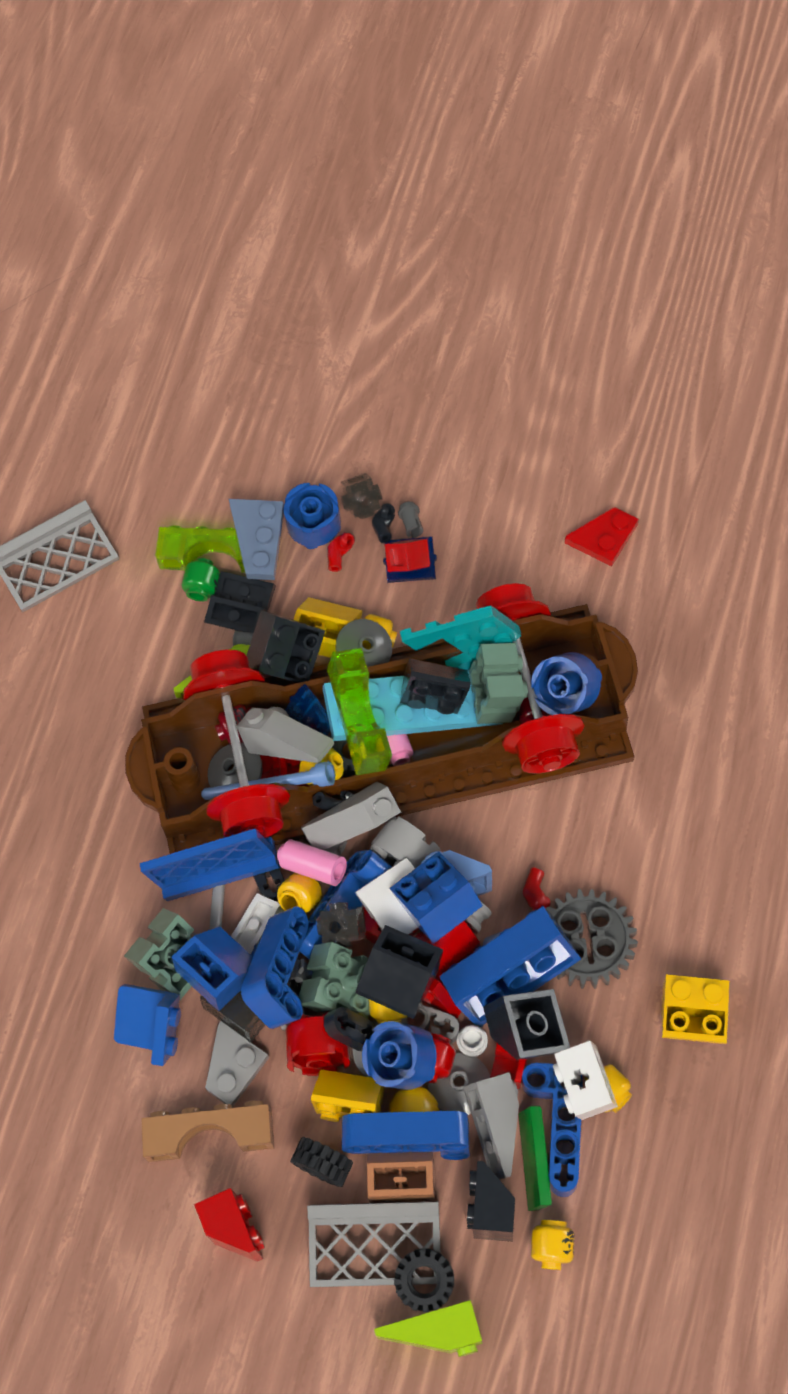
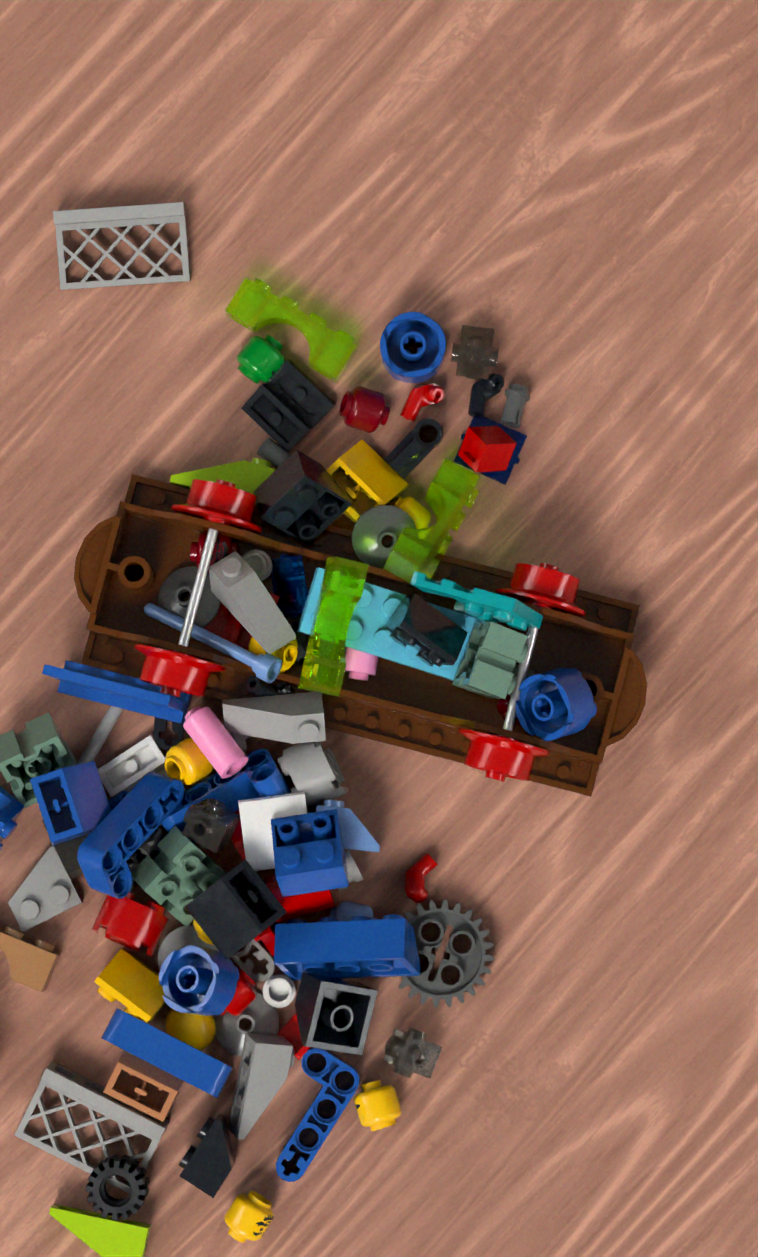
camera: 25 degrees right, 20 degrees up
(259, 534) = (342, 347): sand blue wing -> none
(299, 575) = (364, 409): none -> dark red head
(321, 1161) = (79, 1034): black tyre -> none
(352, 582) = (412, 450): none -> black piece
(352, 1025) = (171, 925): black beam -> none
(400, 601) = (447, 495): none -> clear neon green arch
(534, 1158) = (275, 1132): green tile -> none
(597, 1095) = (366, 1081): white brick -> none
(604, 536) = (705, 532): red wing -> none
(611, 1028) = (411, 1053): none -> clear smoke brick
(695, 1009) = (498, 1080): yellow slope -> none

